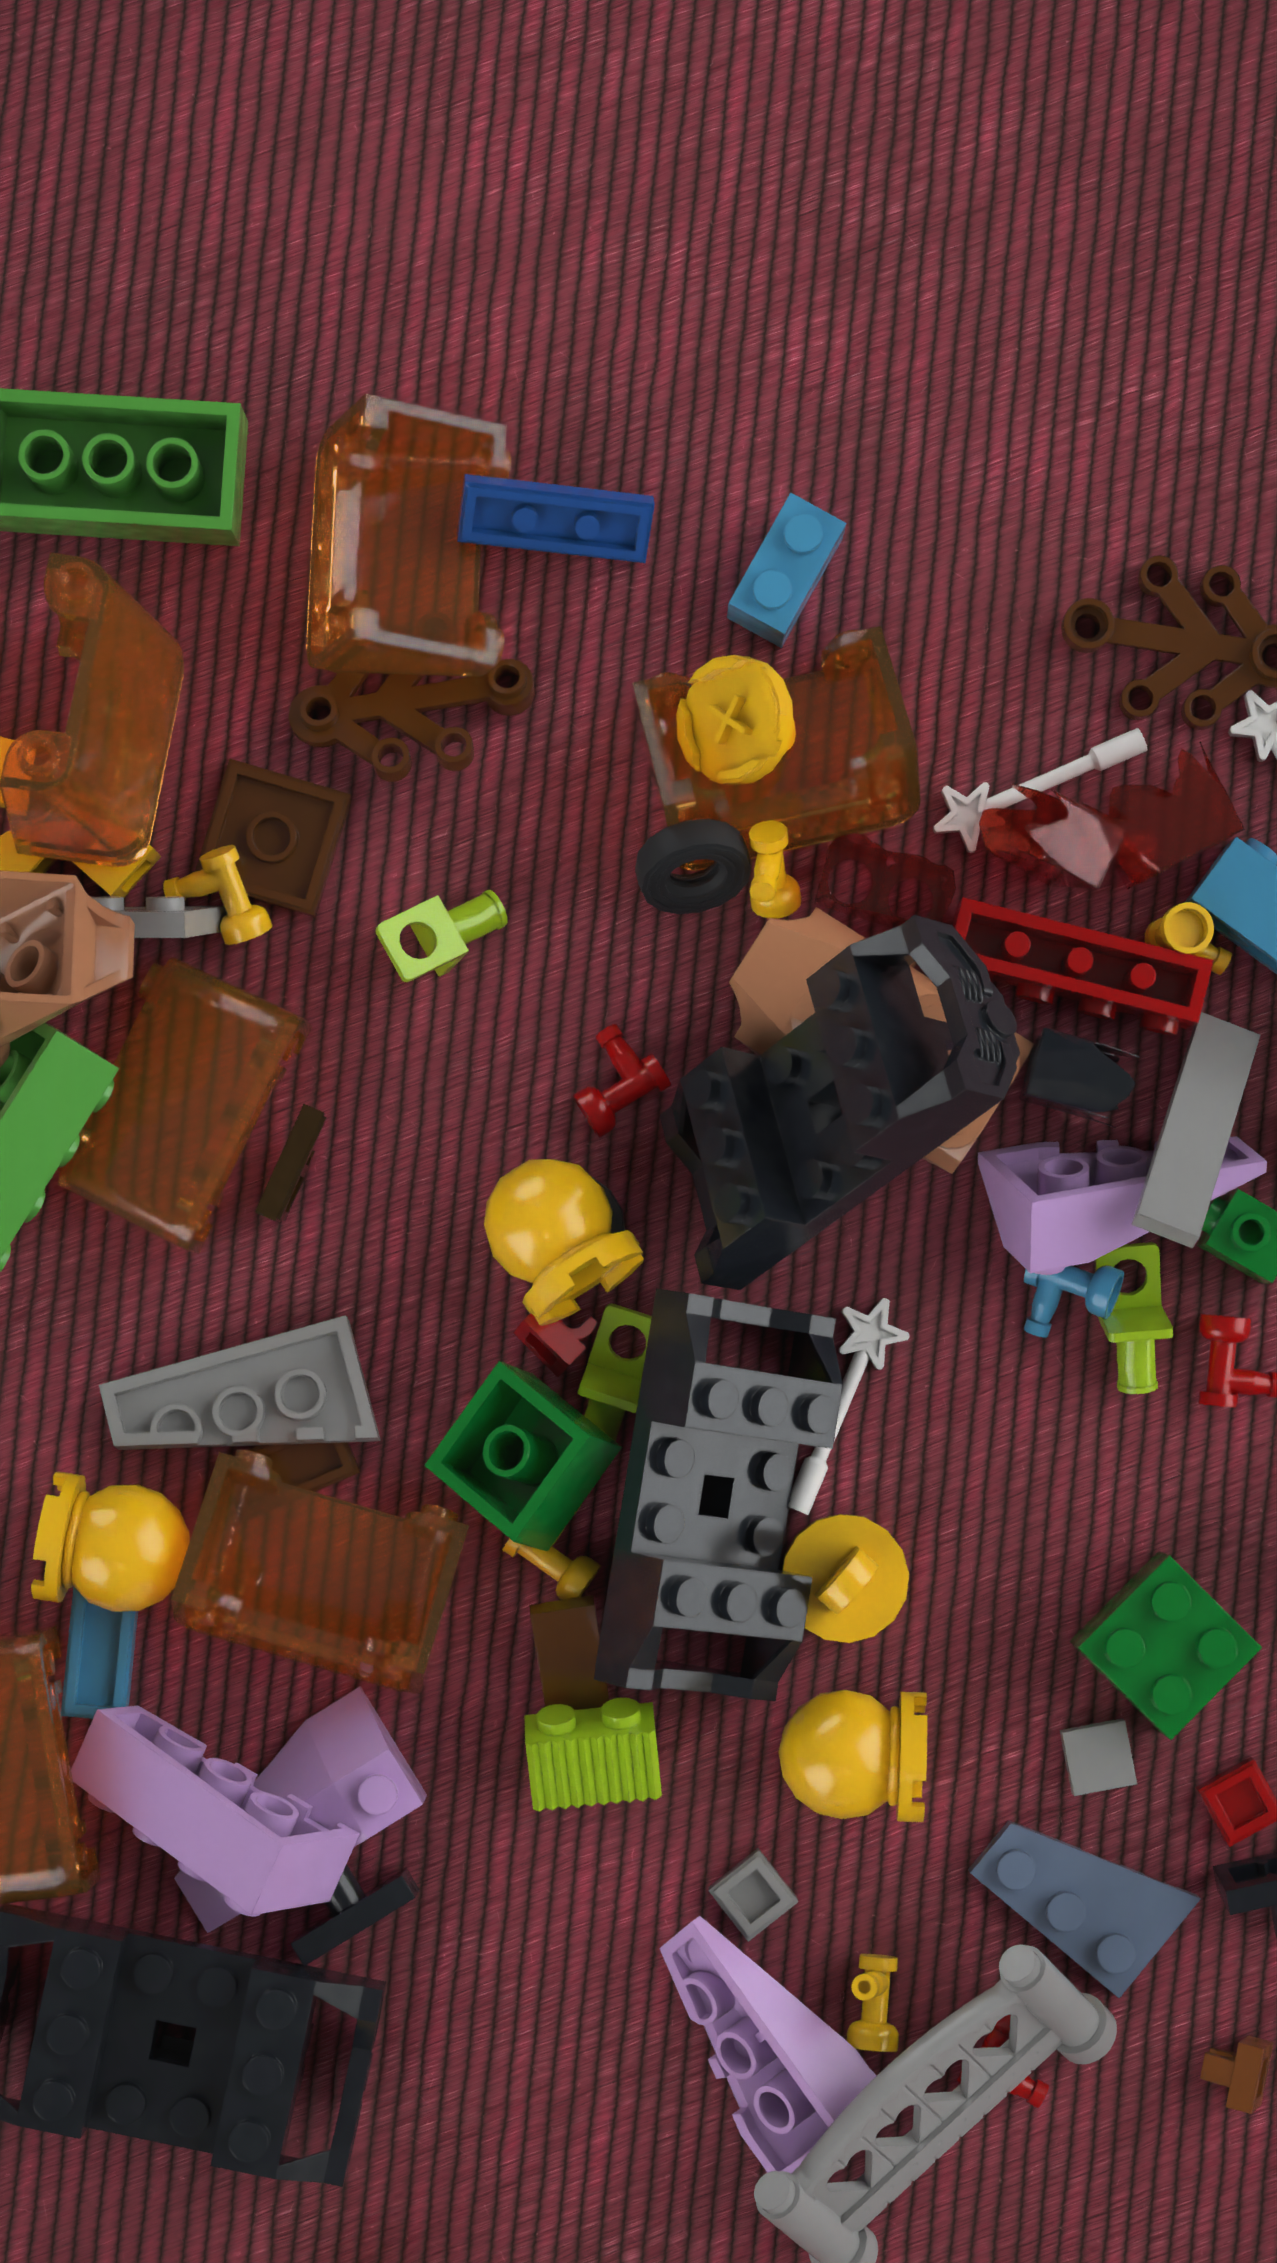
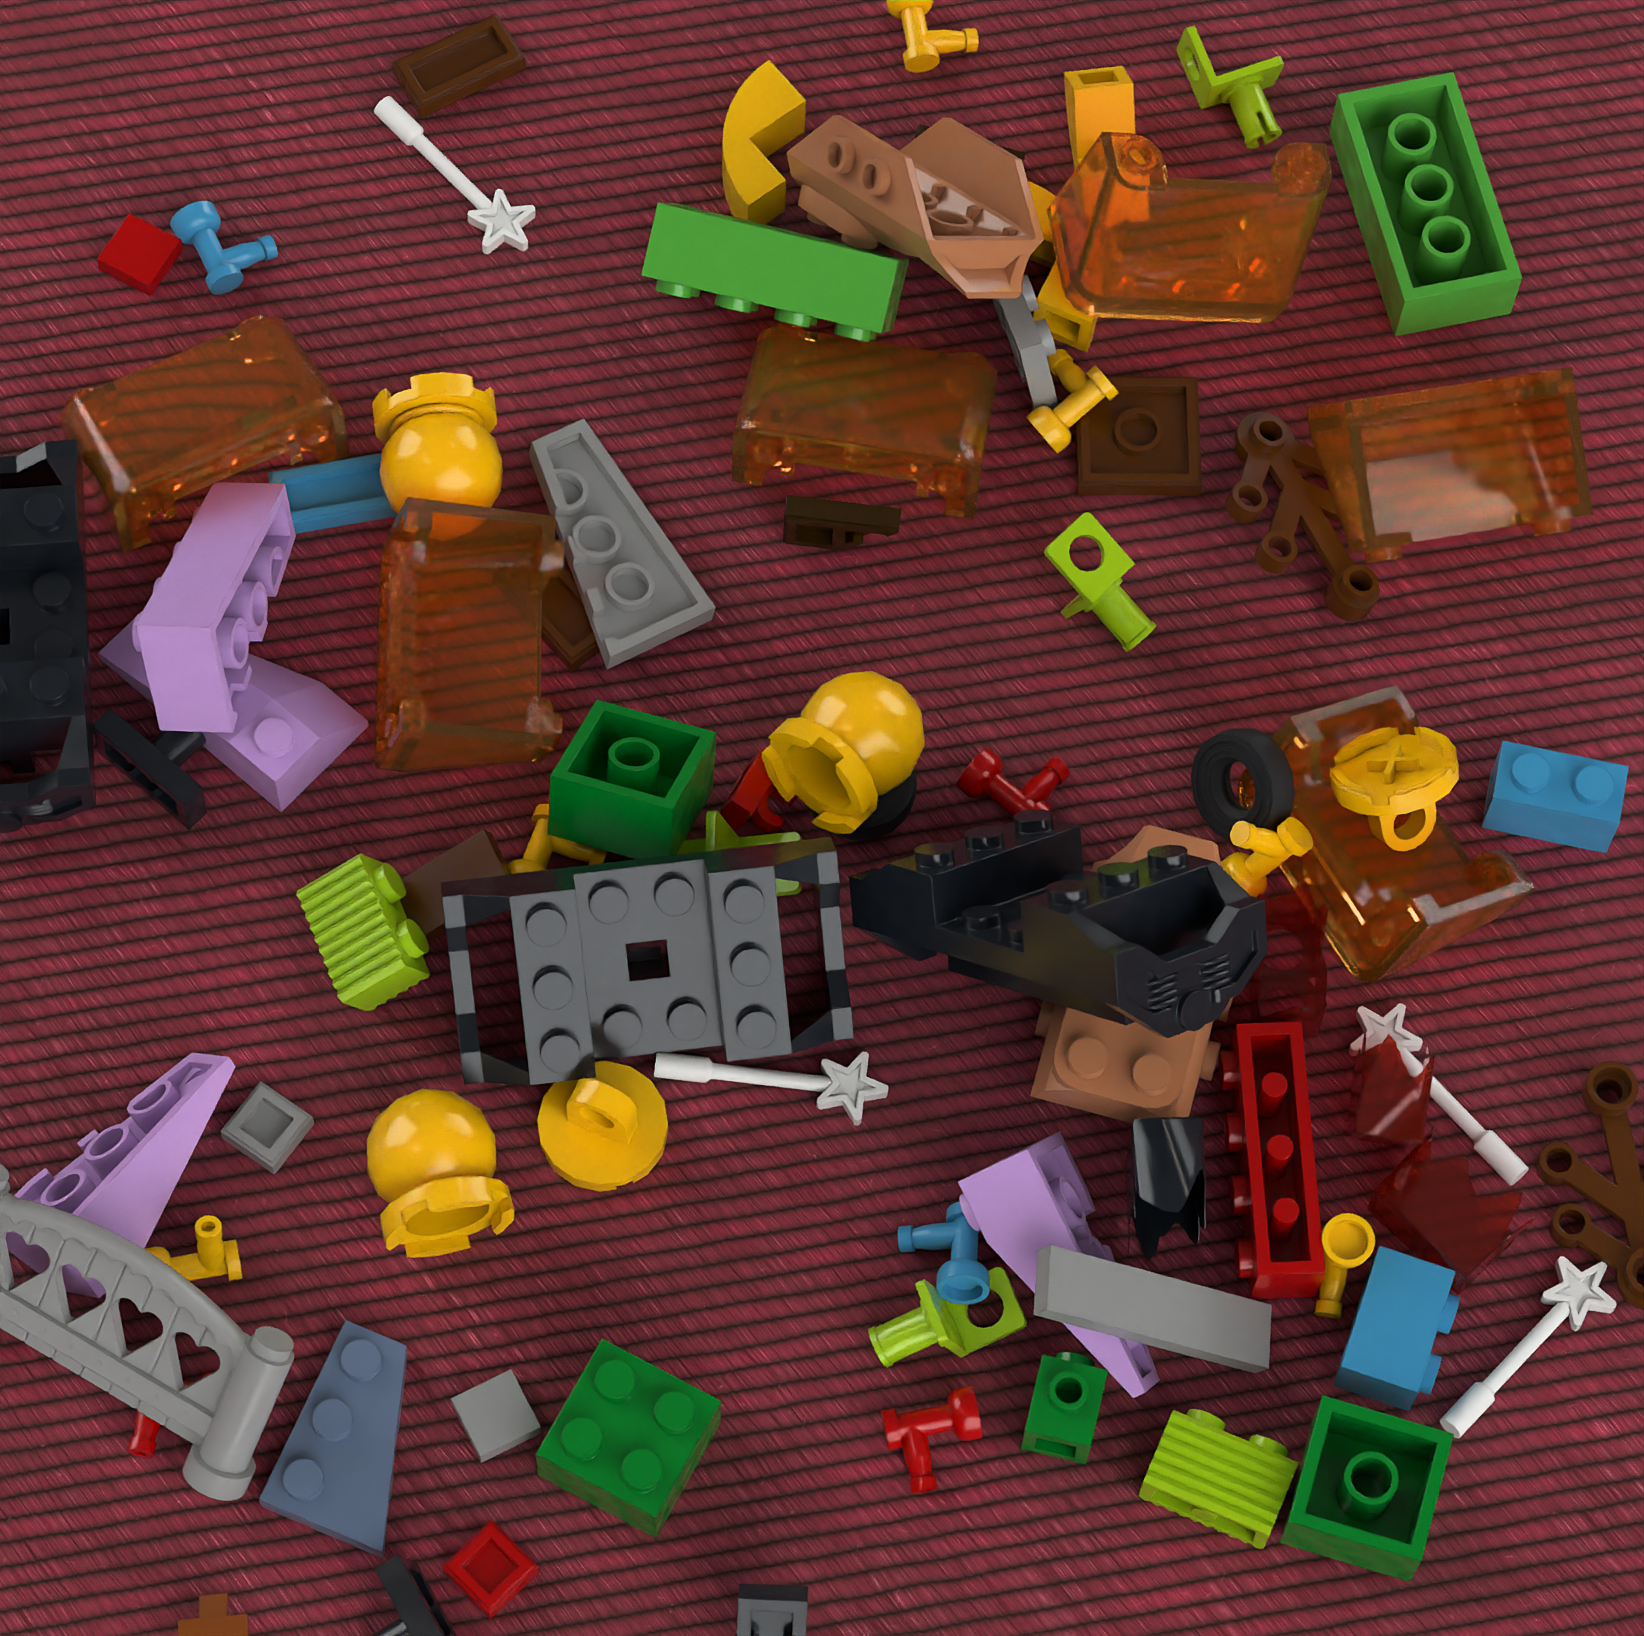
camera: 70 degrees right, 20 degrees down
(555, 518) = (1524, 583): blue tile -> none

